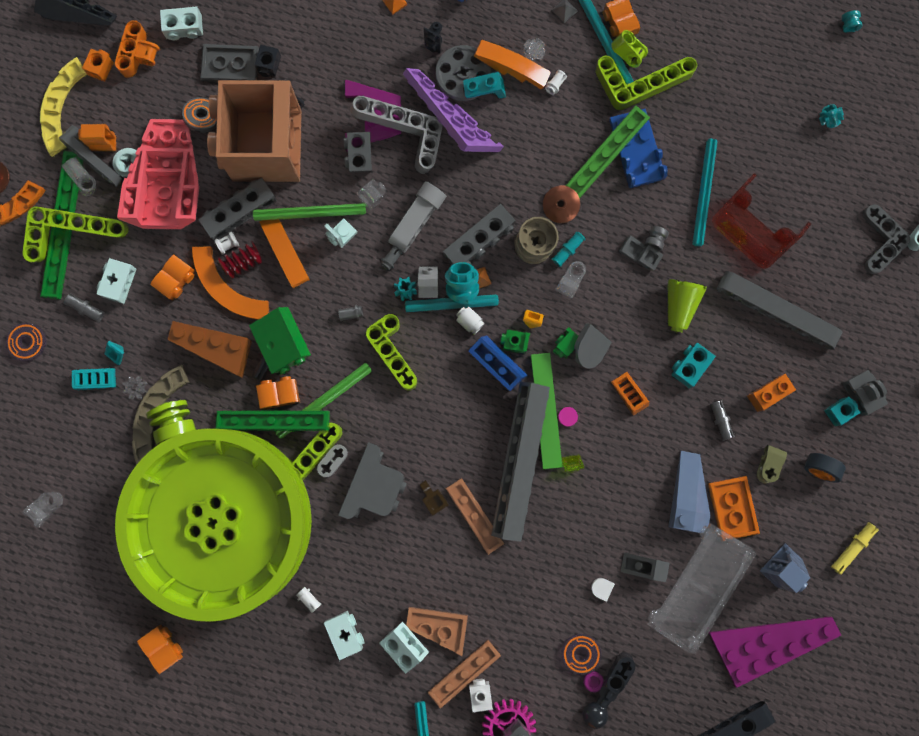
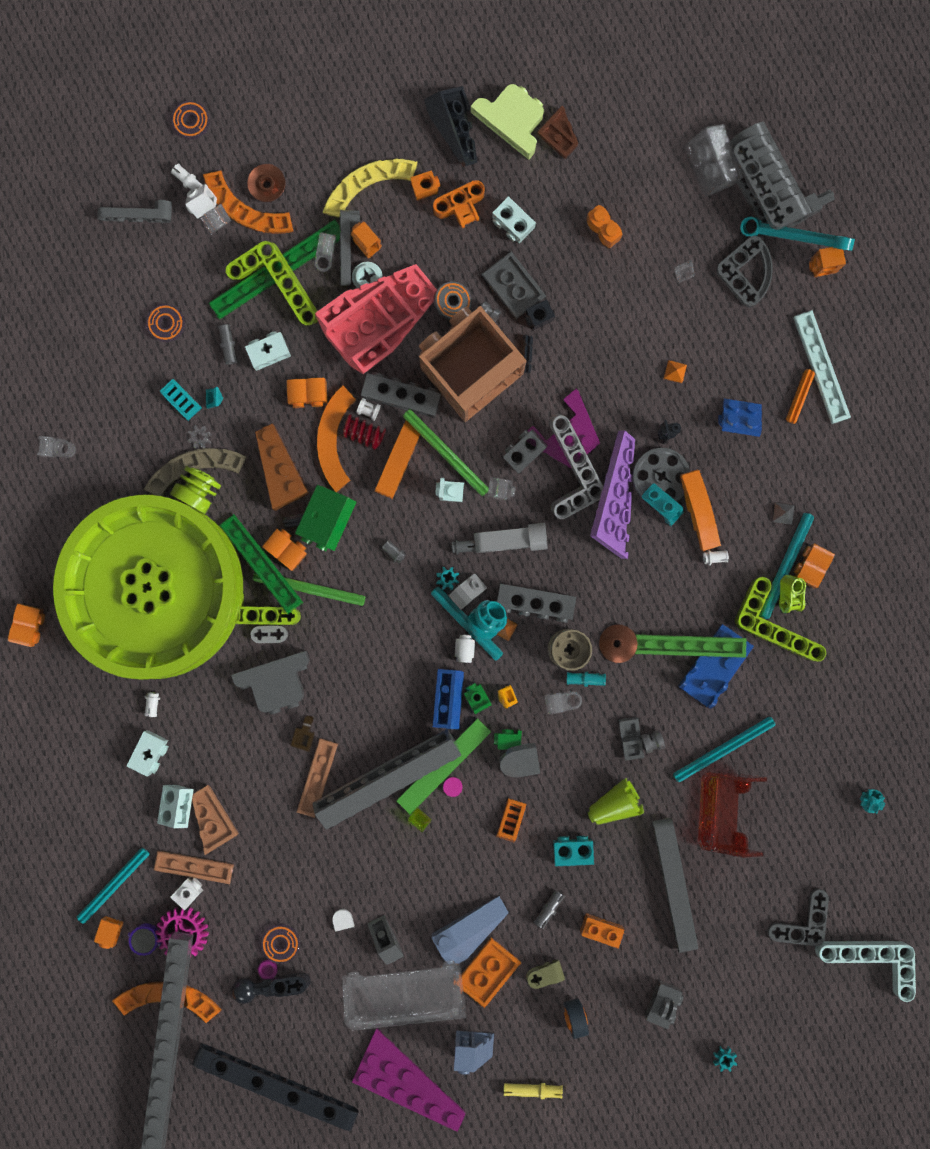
camera: 55 degrees right, 5 degrees up
(394, 356) = (389, 614): lime beam -> none
(534, 49) = (727, 518): clear gear -> none
(834, 411) = (626, 994): teal brick -> none

